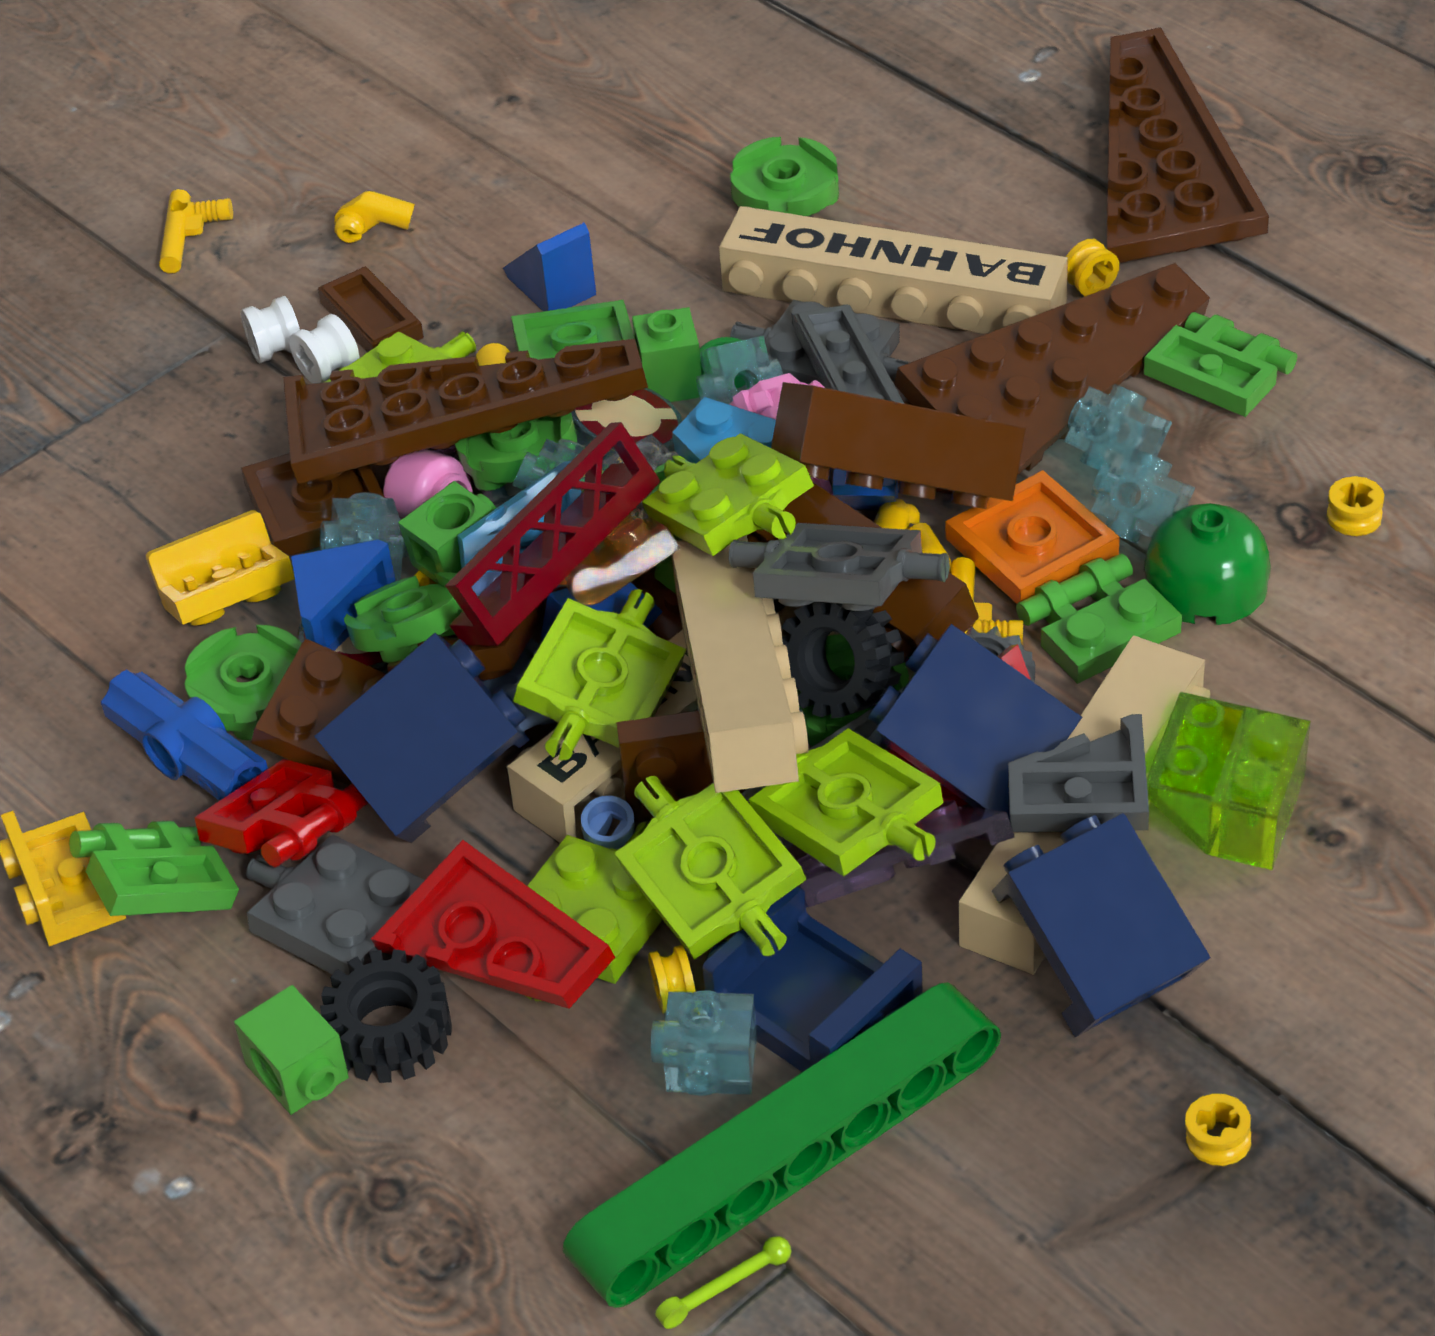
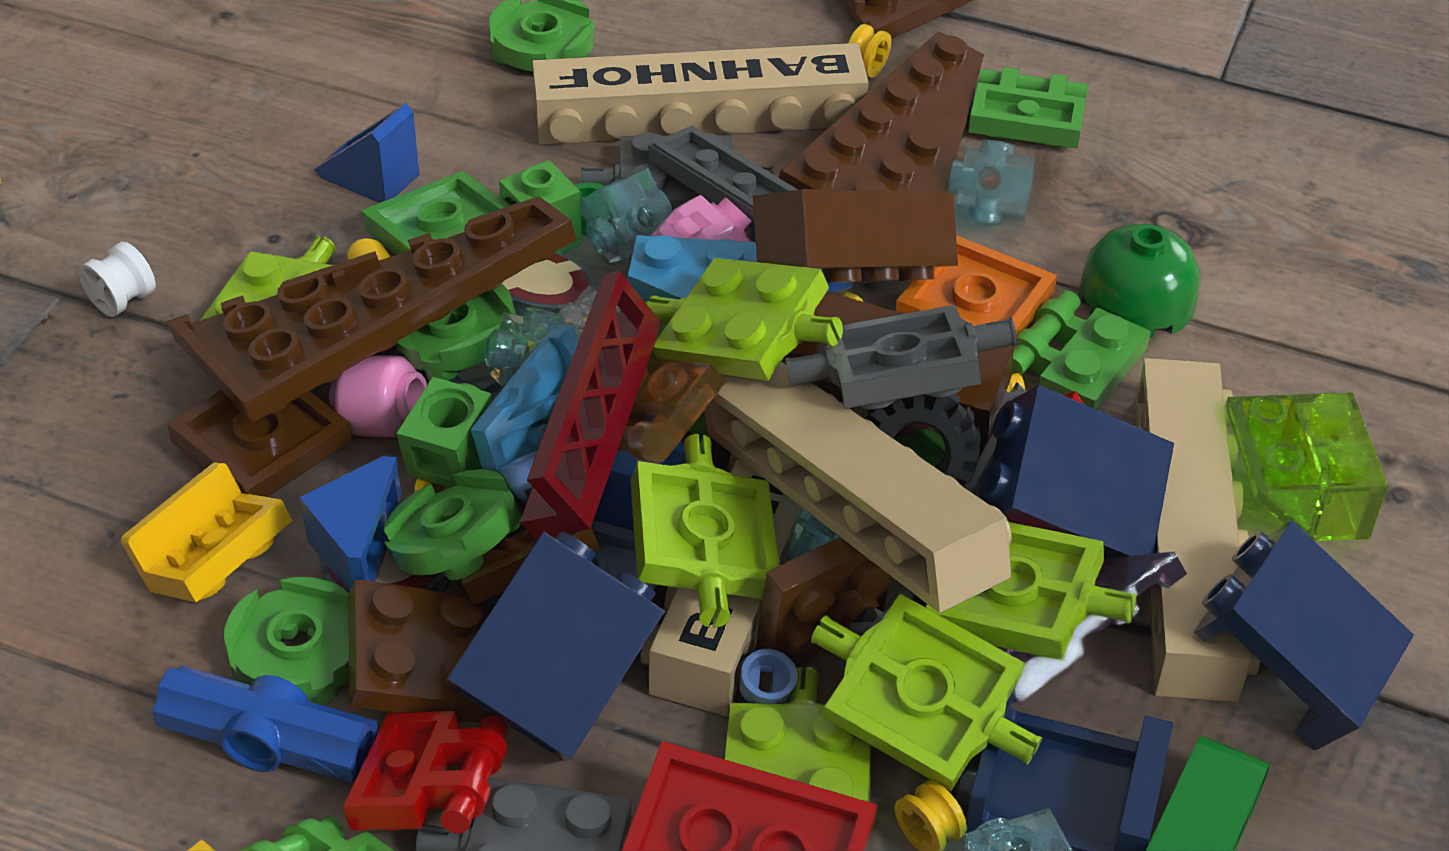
camera: 30 degrees left, 0 degrees up
(323, 349) = (185, 284): white wheel -> none
(365, 519) = (342, 446): clear light blue brick -> none
(368, 308) = (201, 239): reddish brown tile -> none
(369, 210) = (150, 143): yellow arm -> none
(1080, 781) = (1214, 503): dark grey wing -> none
(1116, 492) = (1078, 231): clear light blue brick -> none
(1355, 519) = (1220, 201): yellow bush -> none

